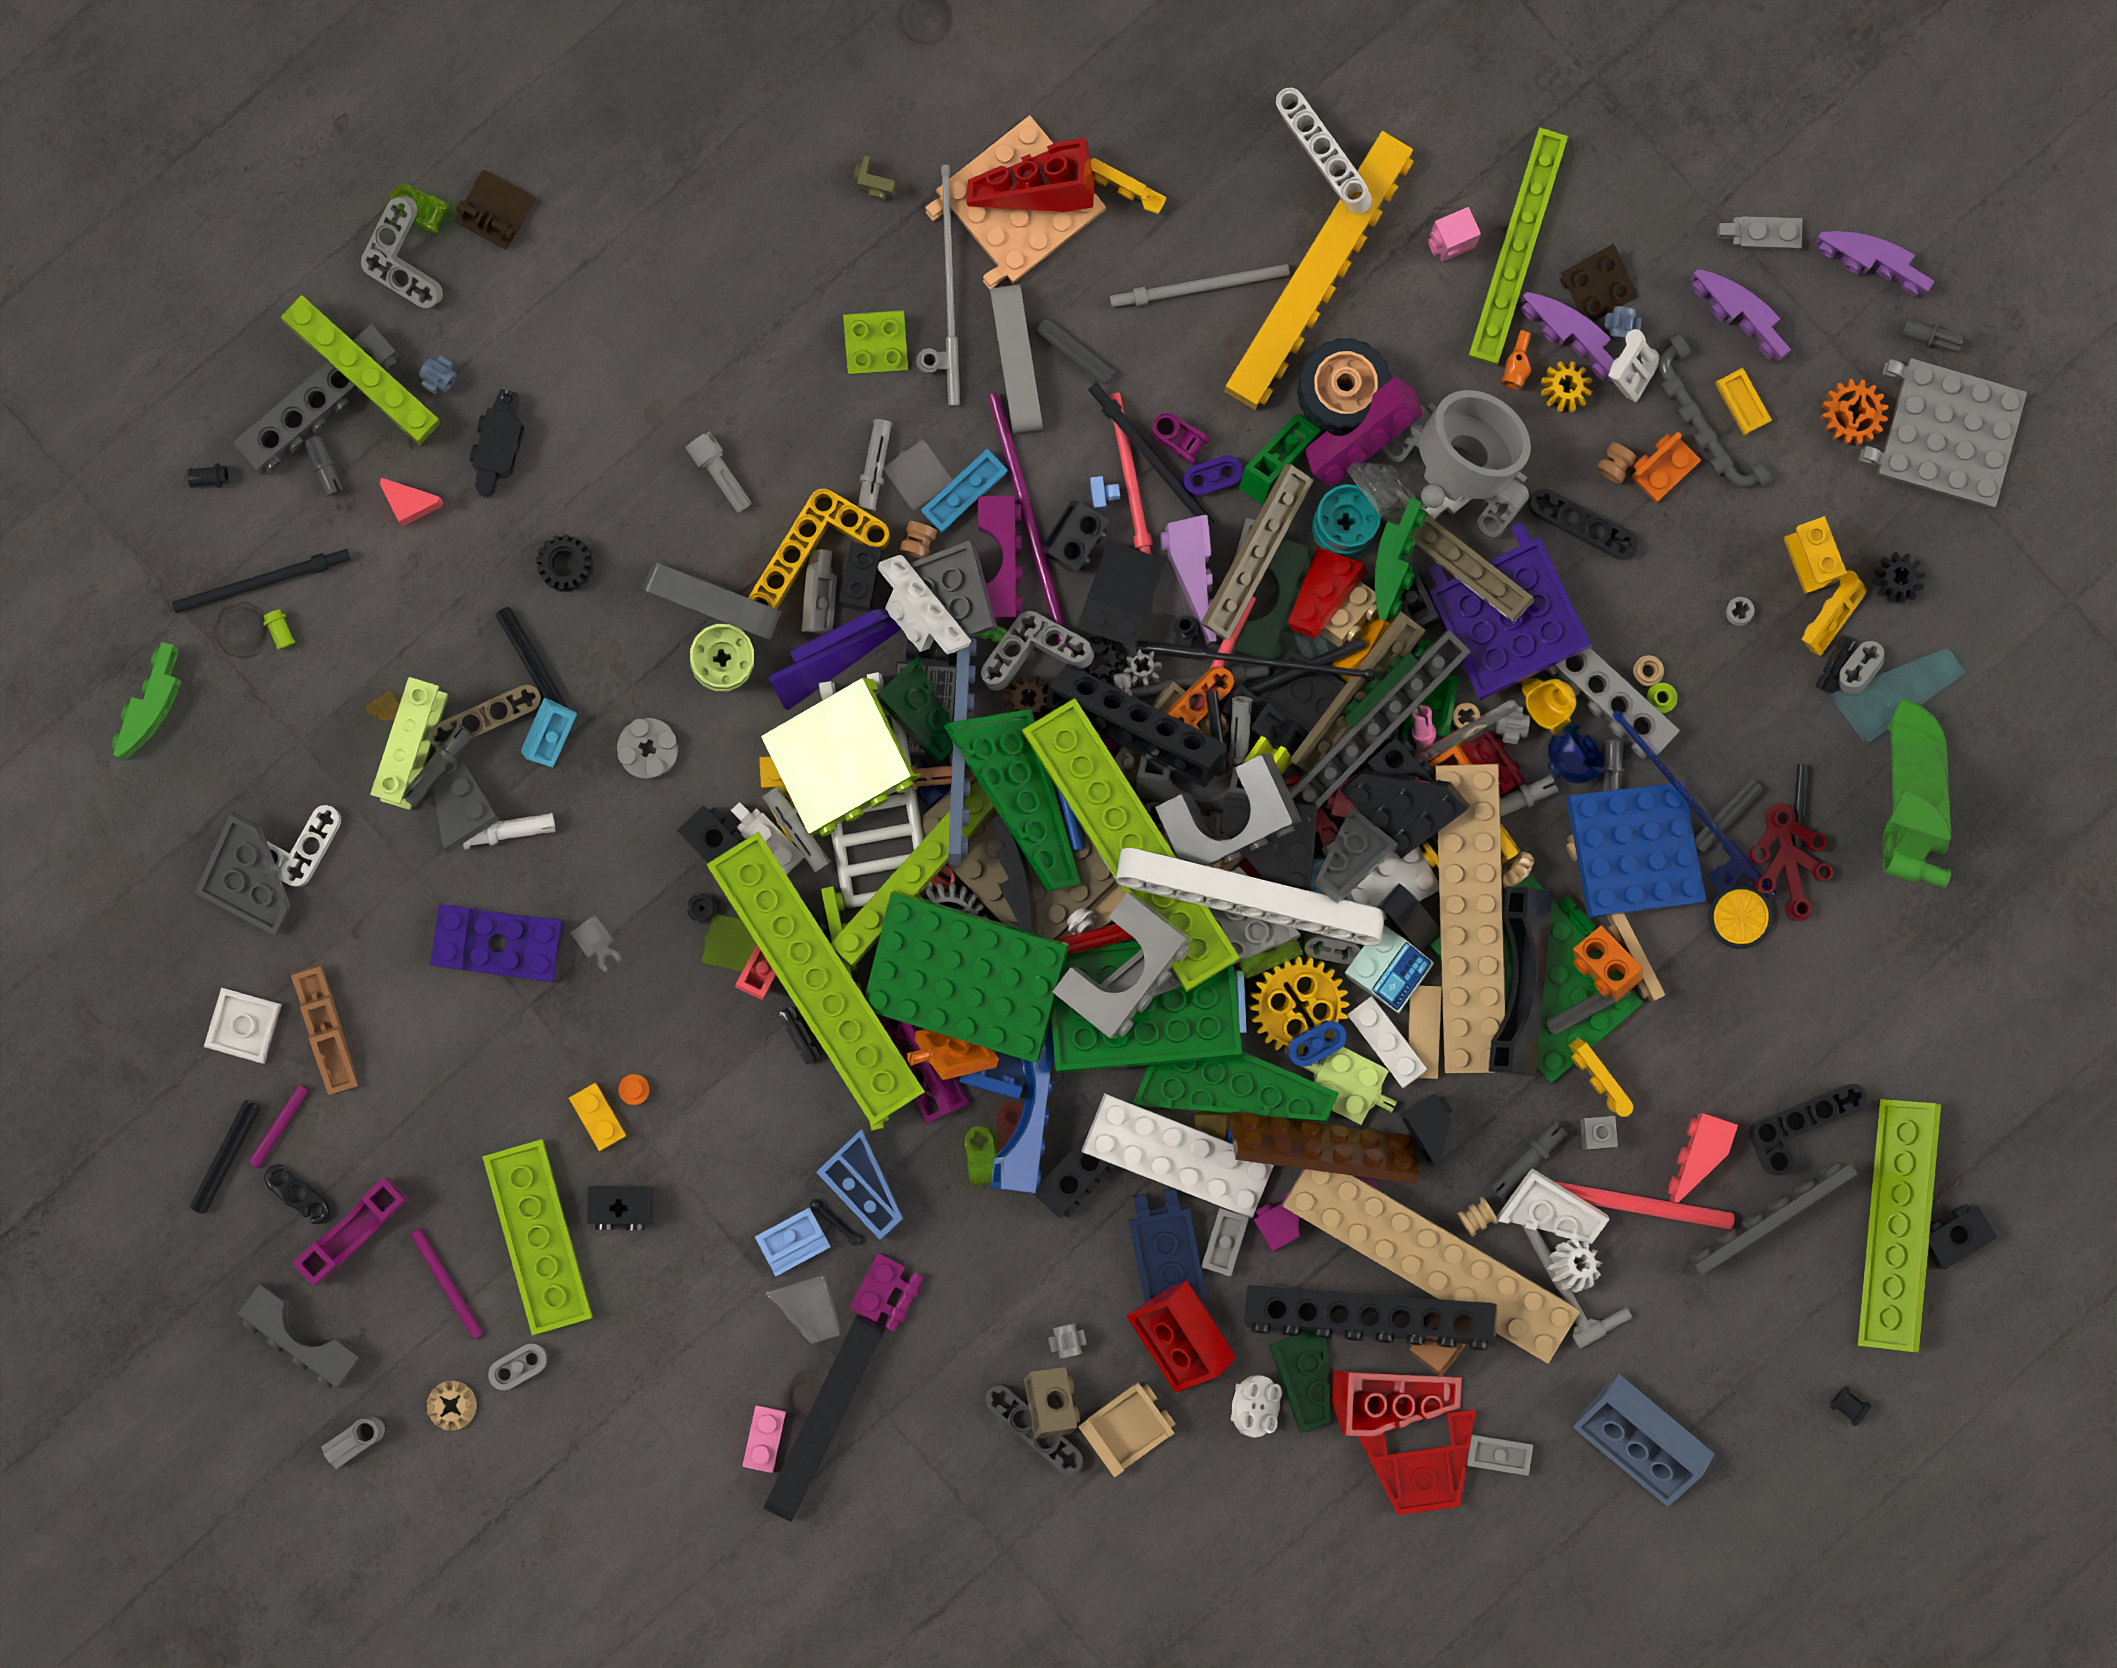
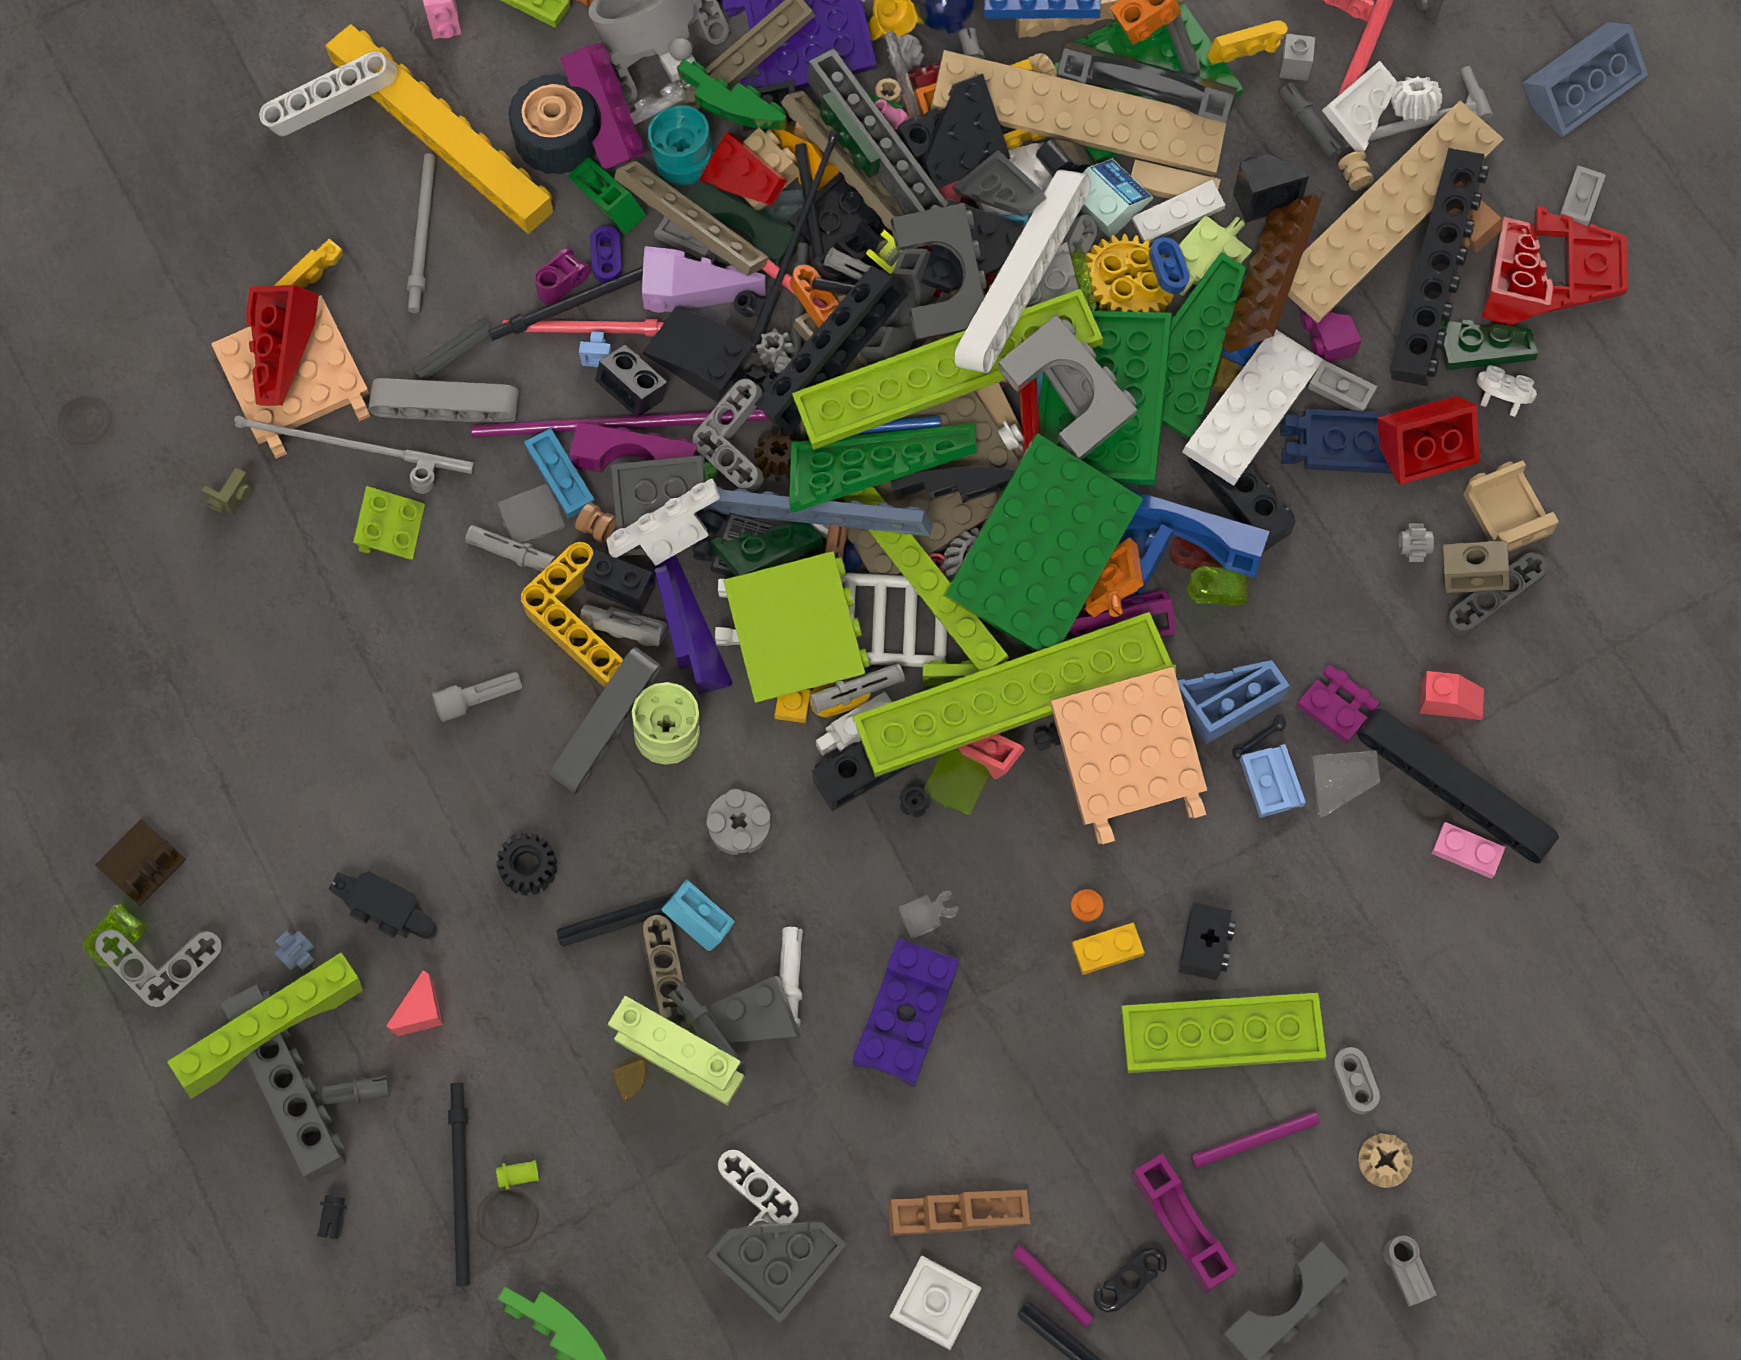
camera: 75 degrees left, 15 degrees down
(786, 1098) = (1129, 749): none -> light nougat plate
(913, 1400) = (1450, 696): none -> coral slope

